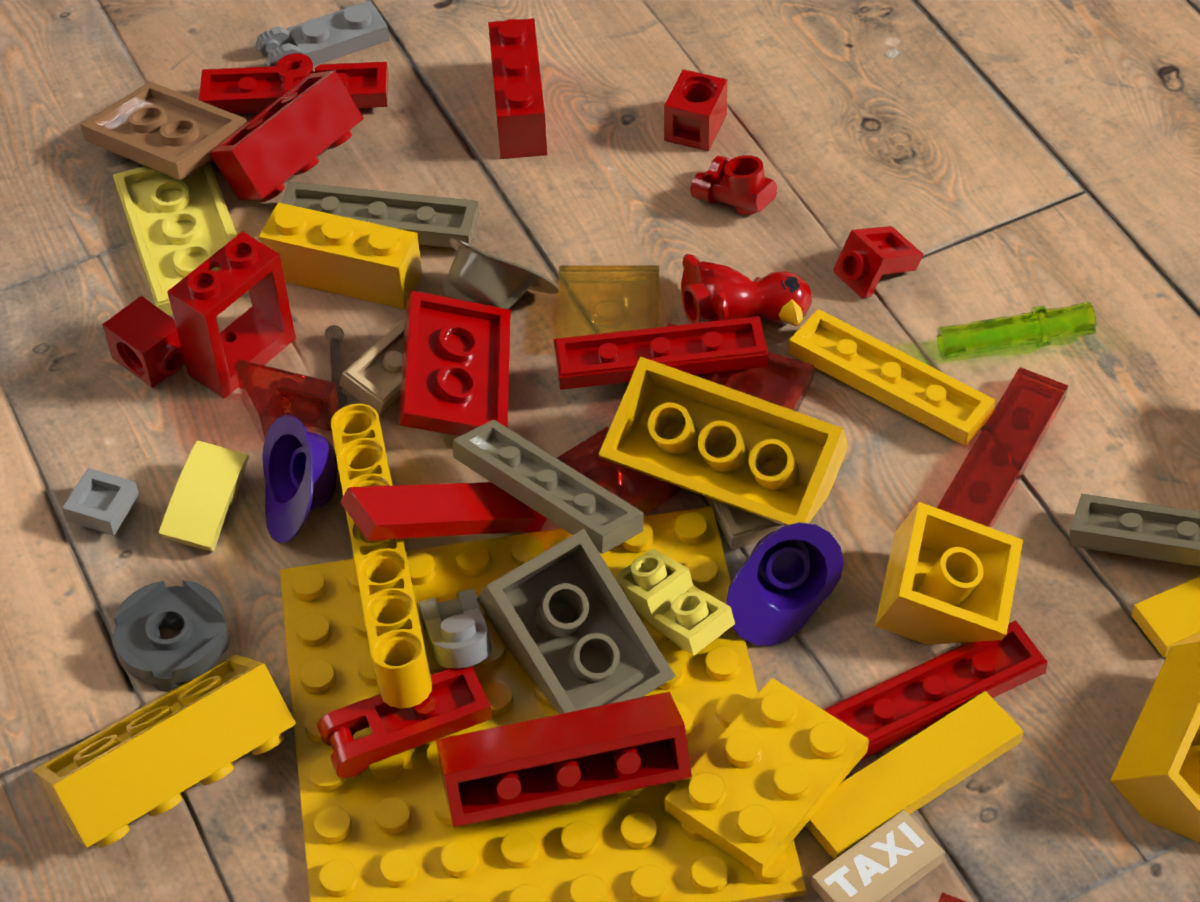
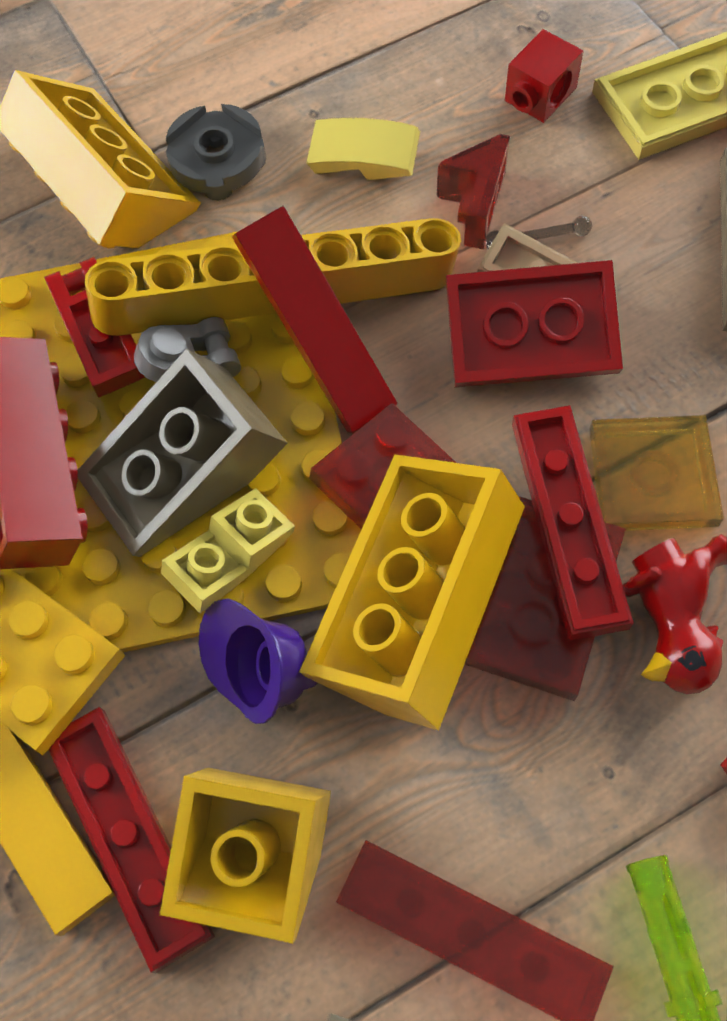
camera: 90 degrees right, 15 degrees up
(100, 501) = (355, 78): light grey plate -> none
(254, 335) = (589, 89): red window -> none
(297, 474) = (395, 206): dark purple piece -> none
(344, 255) = (678, 209): yellow brick -> none
(490, 279) = (663, 344): dark tan piece -> none
(548, 485) = (348, 411): dark tan plate -> none
(892, 377) = (577, 796): yellow plate -> none

